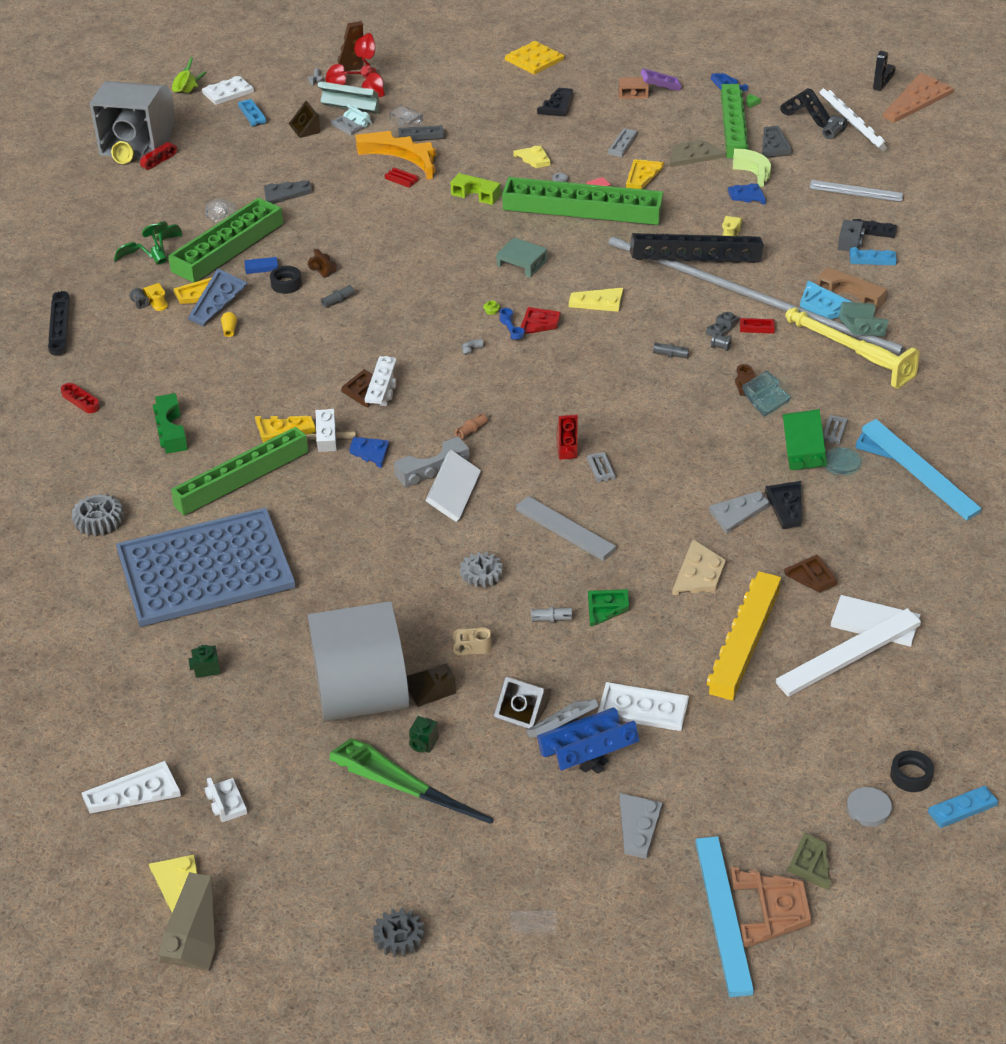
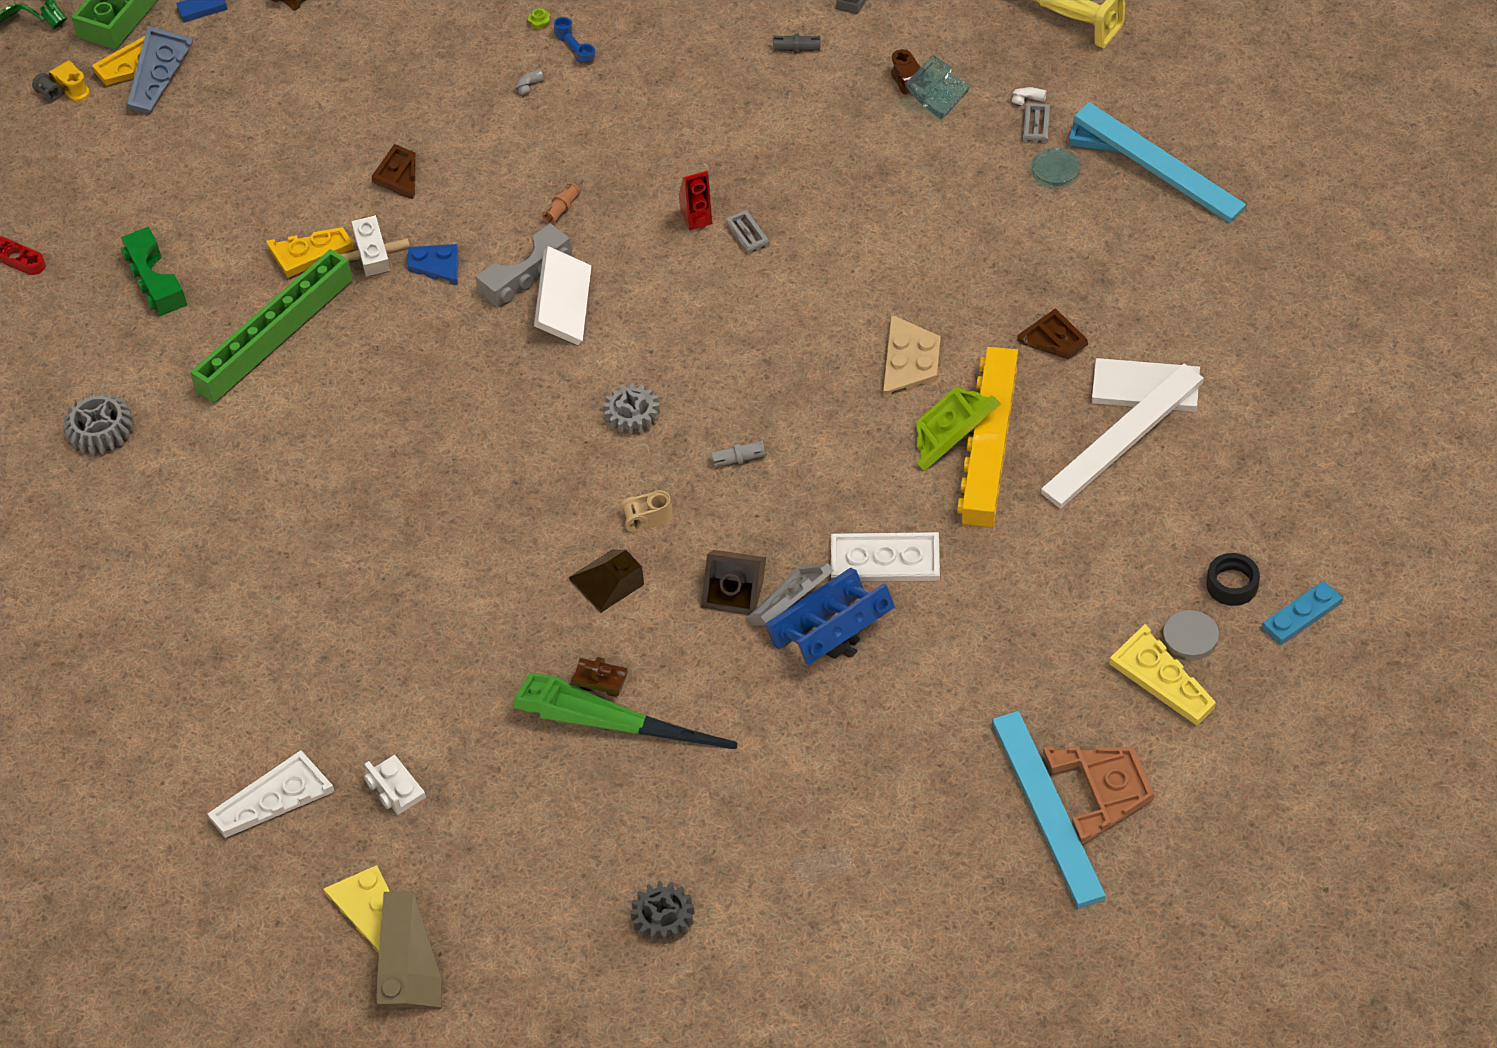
camera: 10 degrees left, 10 degrees up
(204, 566) = (265, 471): sand blue plate -> none
(204, 661) = (310, 605): dark green brick -> none
(229, 323) = (185, 105): yellow cone -> none
(289, 286) = (246, 34): black tyre -> none
(337, 296) = (323, 37): dark grey pin -> none
(358, 661) = (517, 572): light grey brick -> none
(382, 382) = (424, 159): white bracket -> none
(402, 750) = (599, 676): none -> reddish brown hips
(423, 734) = (621, 648): dark green brick -> none
(540, 320) = (610, 27): red wing -> none
(566, 528) = (724, 328): light grey tile -> none
(606, 604) = (804, 427): green wing -> none
(638, 823) = (917, 712): light grey wing -> none
(716, 618) = (950, 422): none -> lime wing
(721, 341) = (860, 18): dark grey bush -> none
(737, 510) = (936, 264): light grey wing -> none
(786, 503) = (999, 241): black wing -> none
(804, 439) = (1004, 148): green slope -> none
(811, 861) = (1137, 720): olive wing -> none
(834, 827) = (1154, 669): none -> light yellow wing
(835, 409) = (1028, 93): none -> white arm

